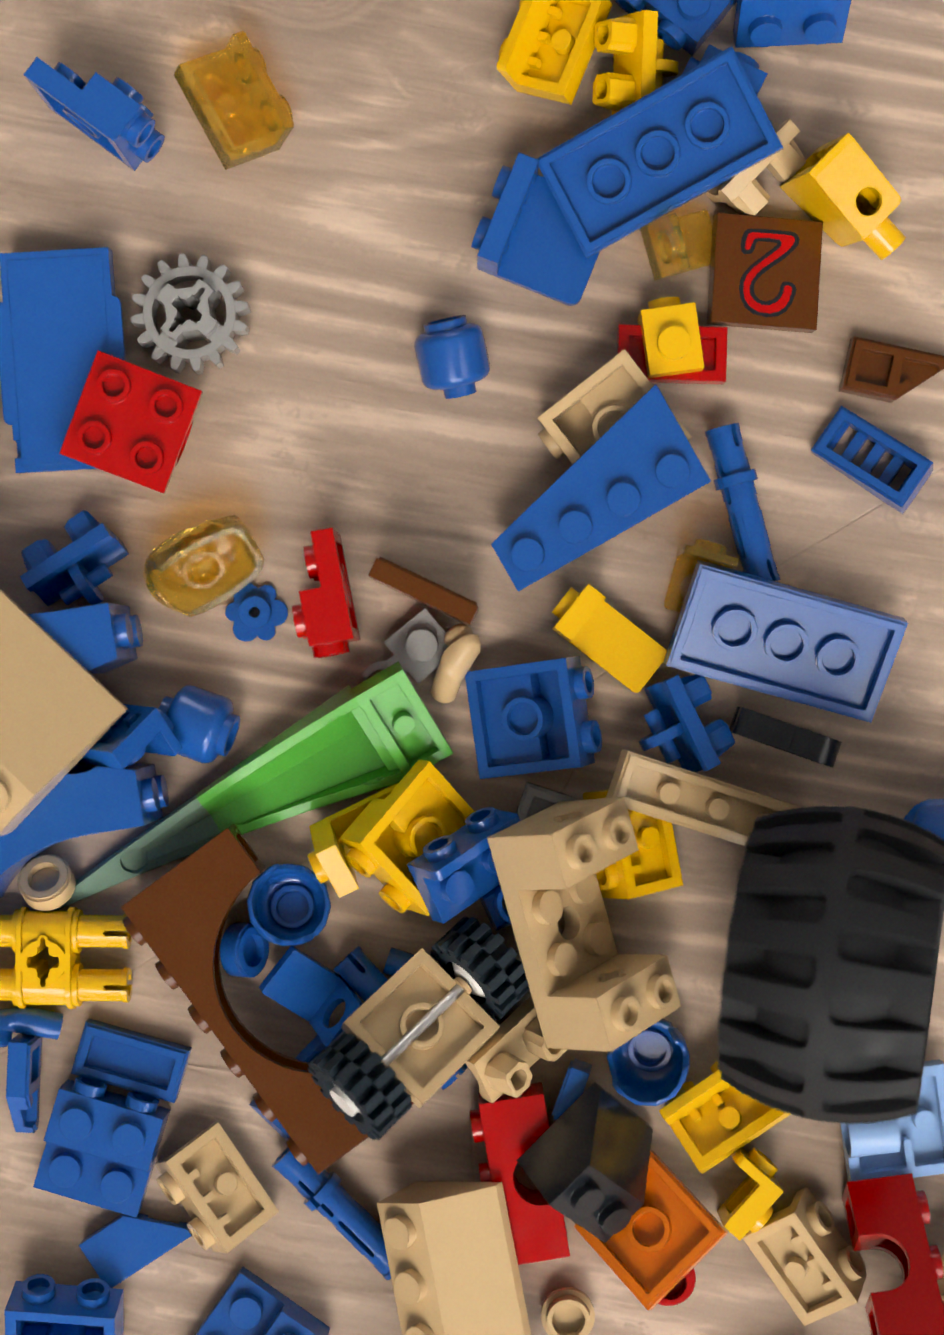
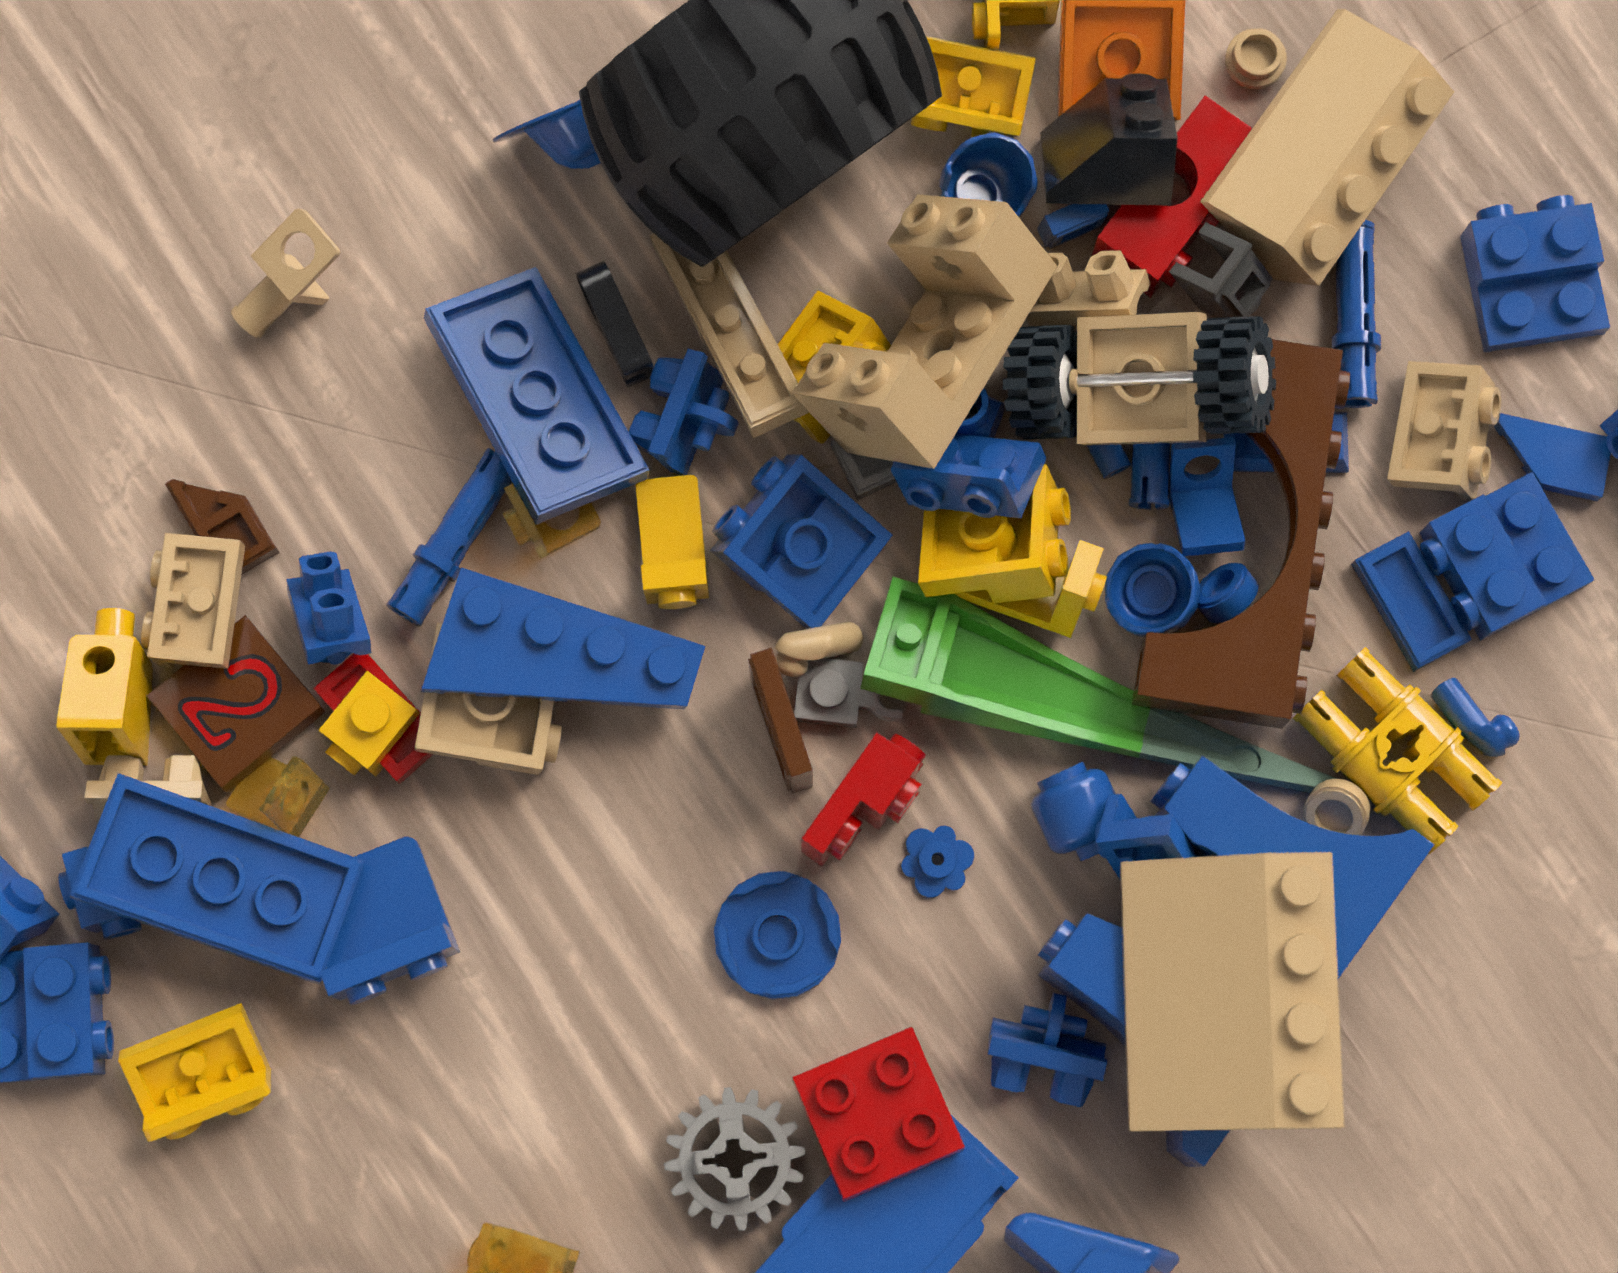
camera: 135 degrees left, 10 degrees down
(24, 1081) = (1518, 669): blue tile -> none
(203, 565) = (940, 936): clear yellow piece -> none
(302, 470) = (777, 935): none -> blue tile
(430, 1151) = (1237, 284): none -> dark grey window
(452, 356) = (556, 897): blue head -> none
(636, 60) = (154, 980): yellow hips -> none
(767, 379) = (327, 610): none -> blue hips
(854, 302) = (193, 601): none -> tan bracket
(902, 454) = (306, 417): blue slope -> none

